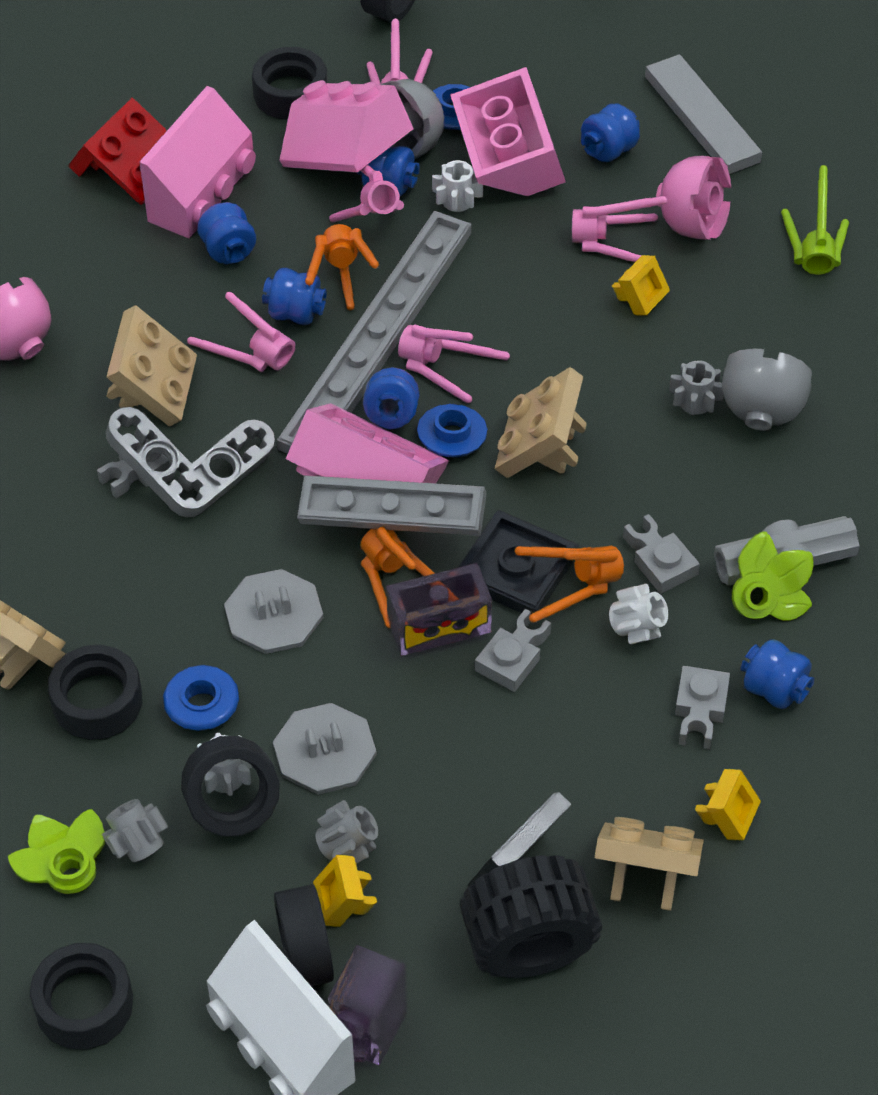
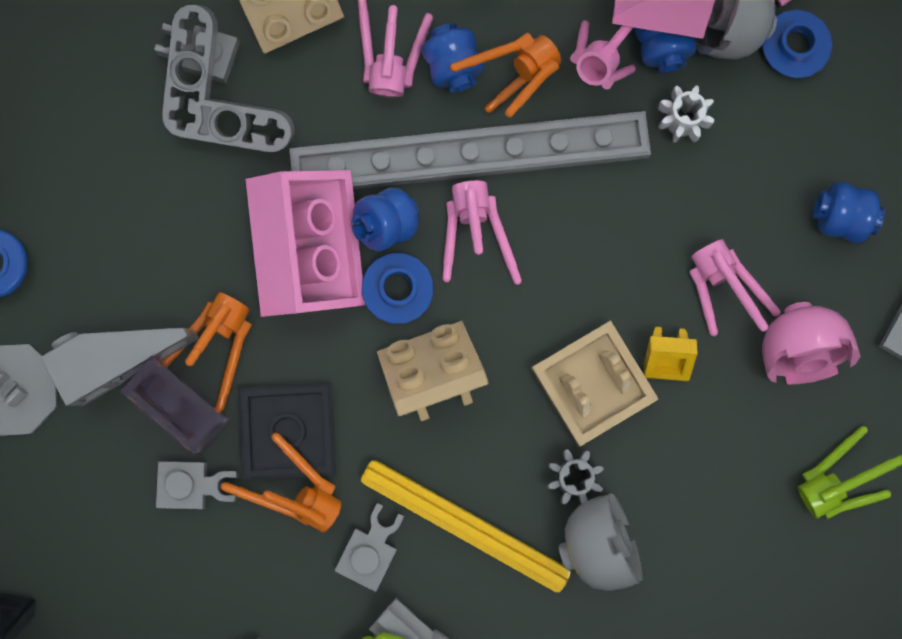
camera: 55 degrees right, 30 degrees up
(273, 611) = (119, 261): light grey piece -> none
(356, 643) = (98, 362): none -> light grey slope
(392, 505) = (250, 303): light grey tile -> none
(508, 135) = (775, 122): bright pink slope -> none
(629, 340) = (594, 383): none -> tan plate
(638, 614) = (281, 574): white gear -> none
(684, 481) = (465, 526): none -> yellow axle

